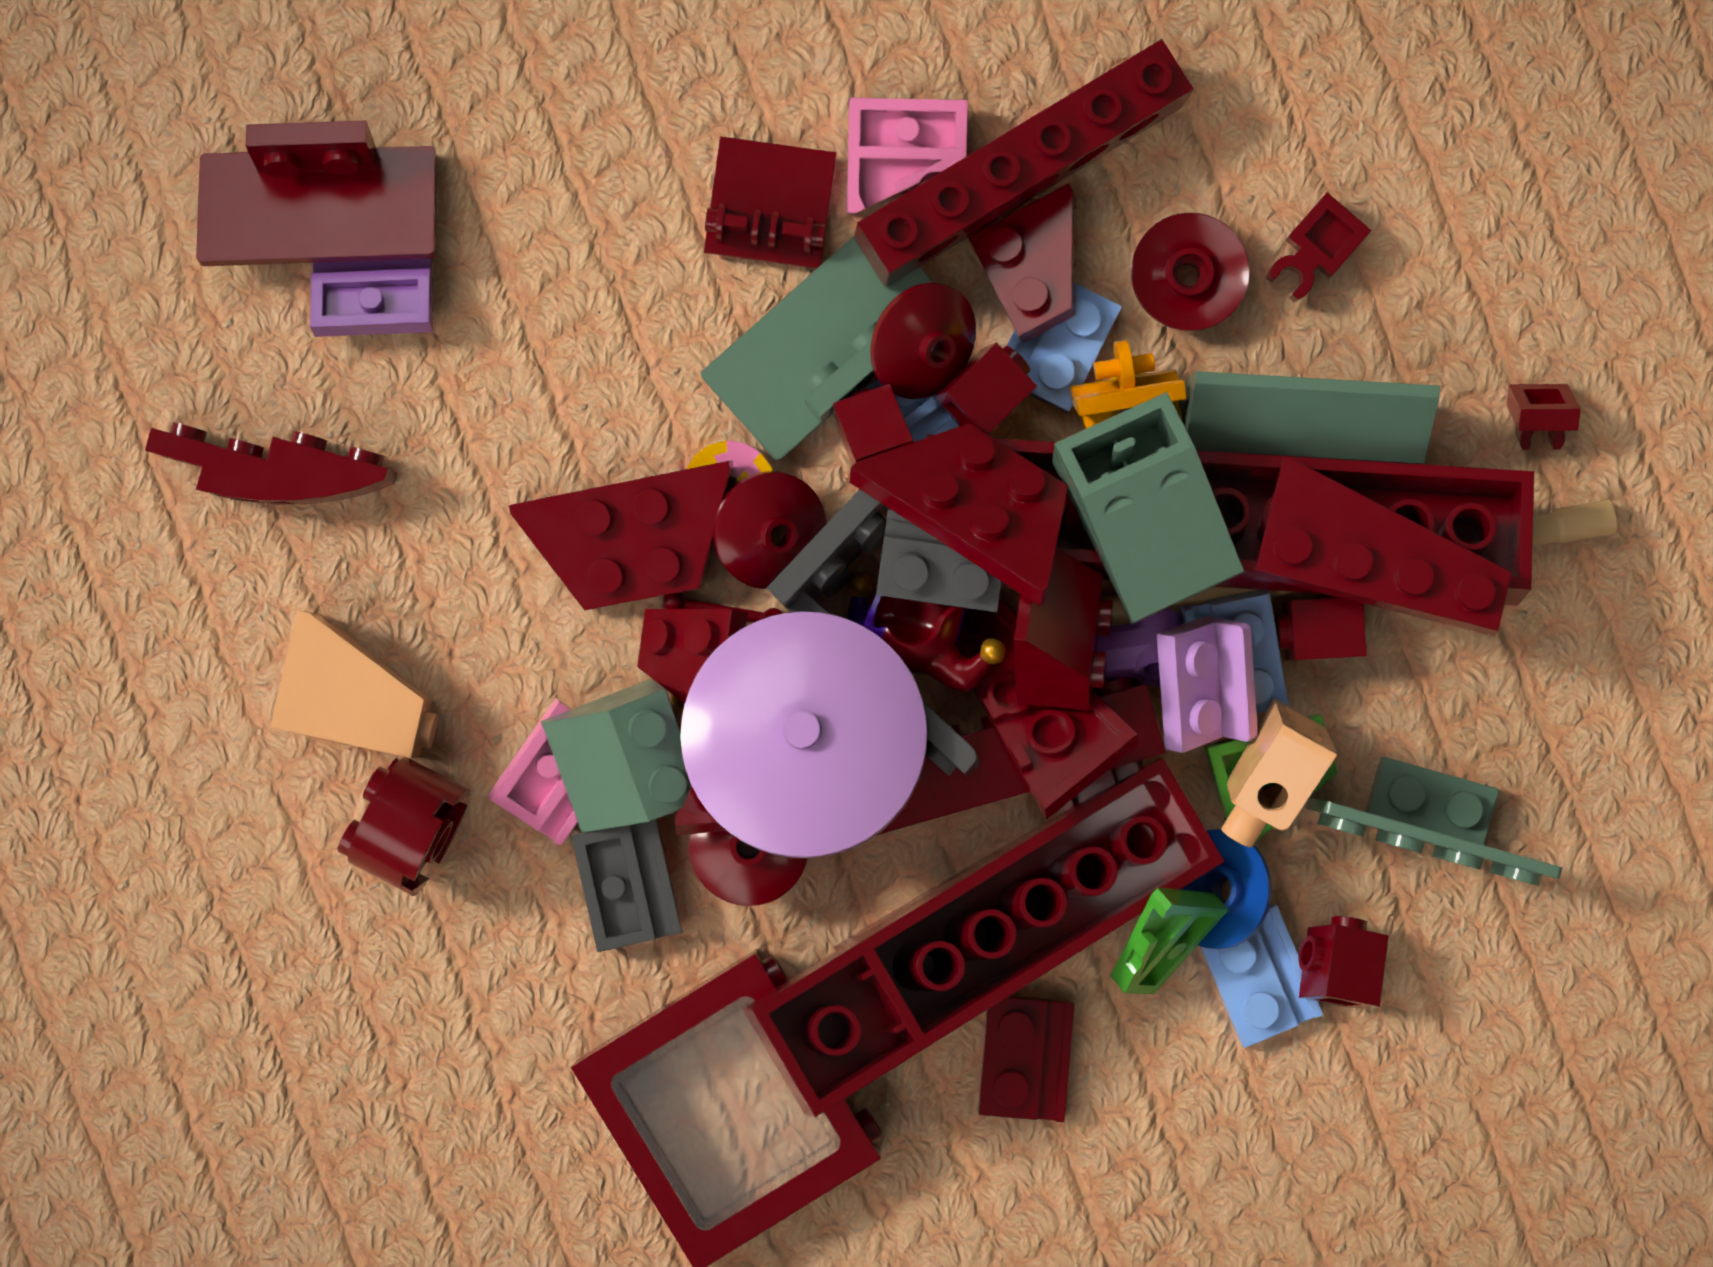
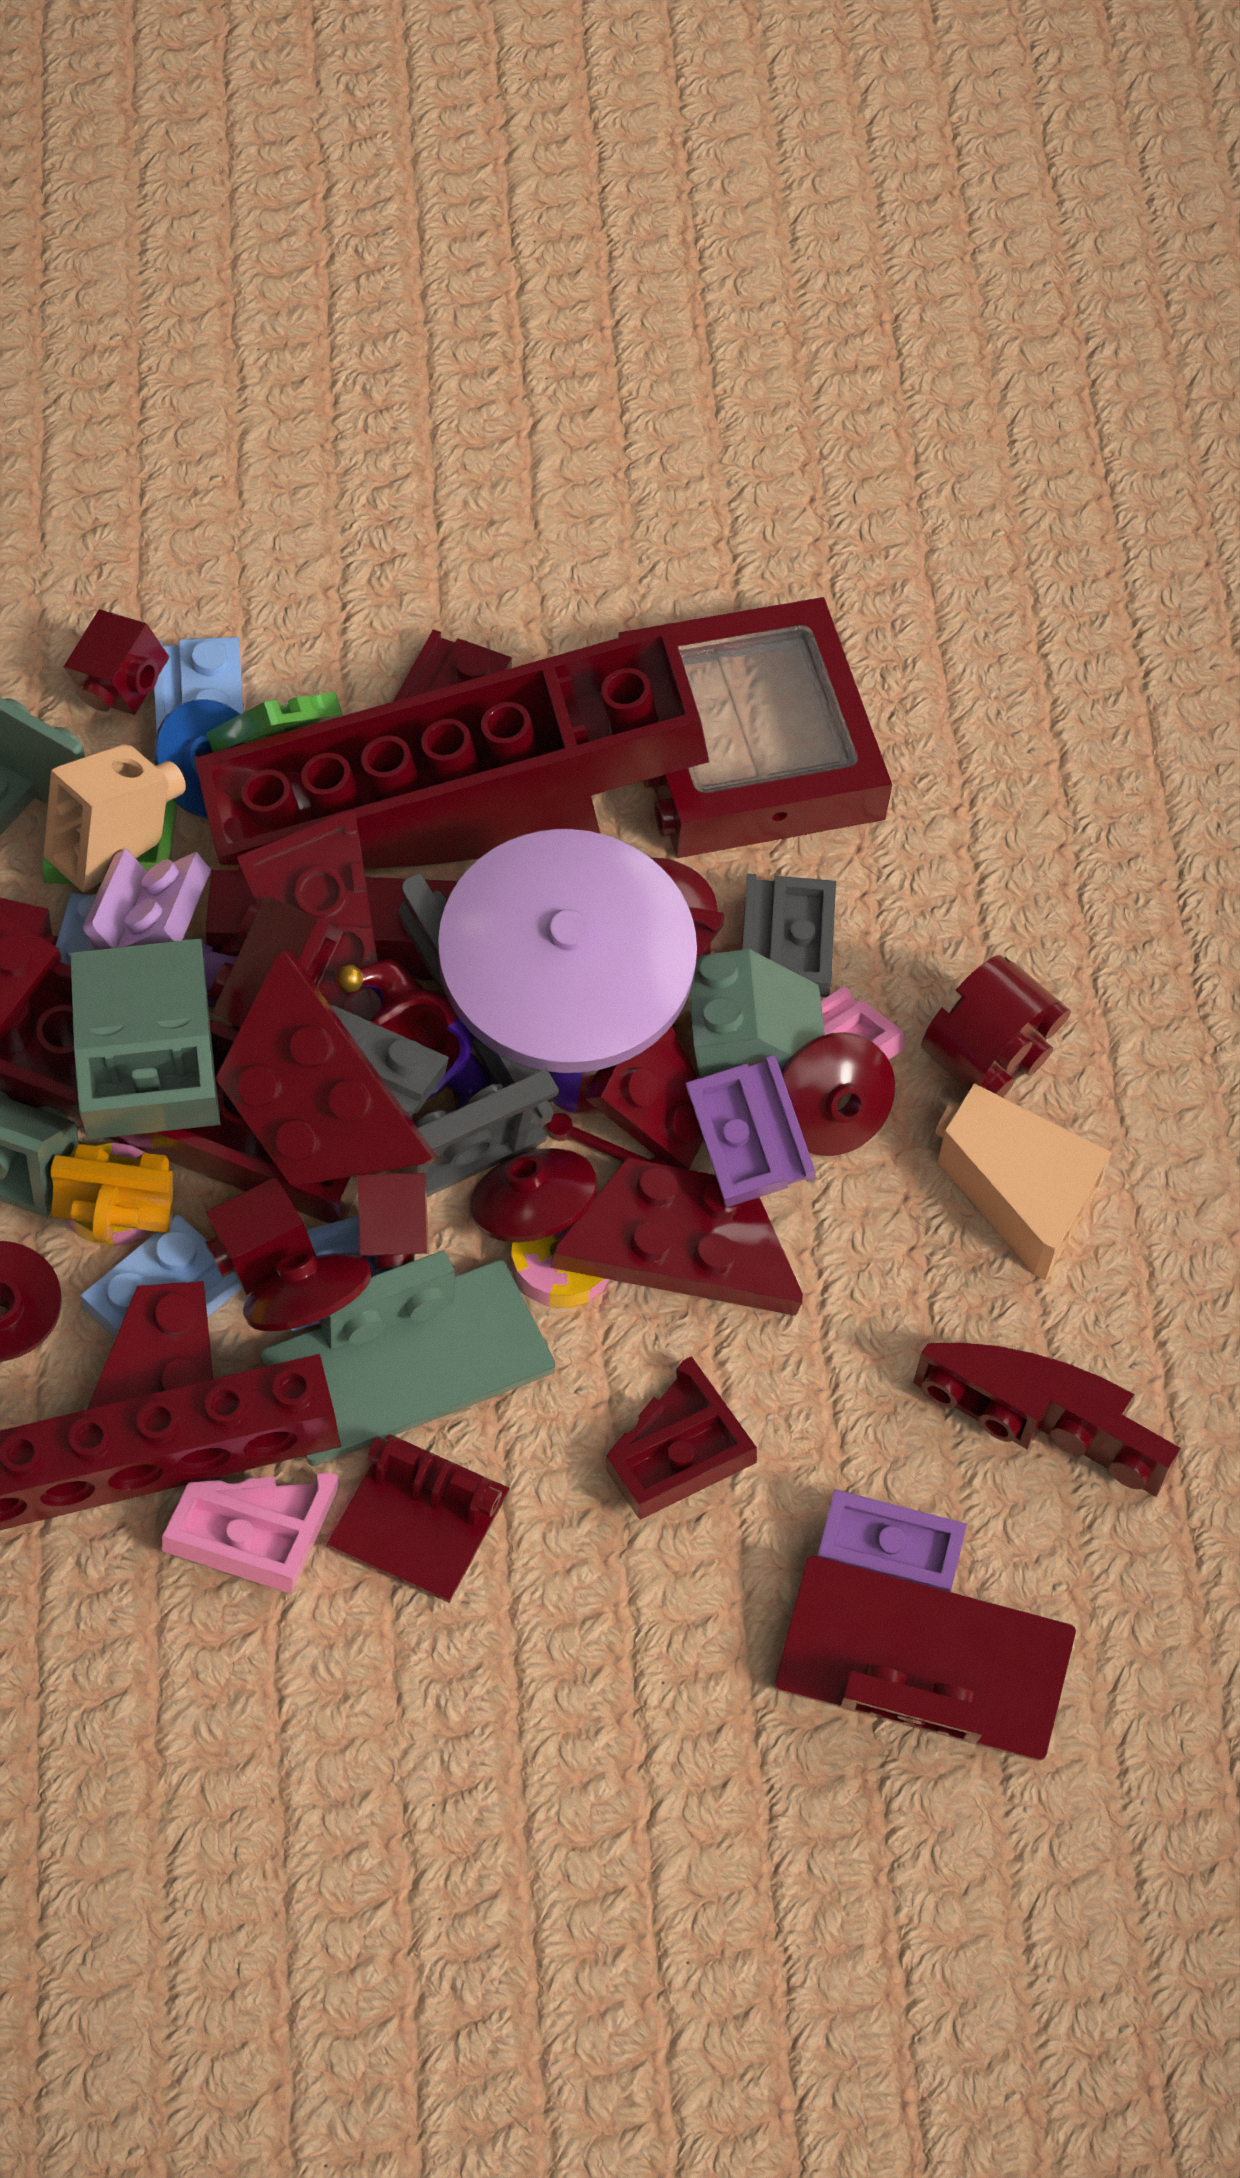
camera: 170 degrees left, 30 degrees down
(533, 712) = (827, 1071): none -> dark red dish
(575, 336) = (679, 1445): none -> dark red wing
(594, 634) = (750, 1131): none -> medium lavender plate

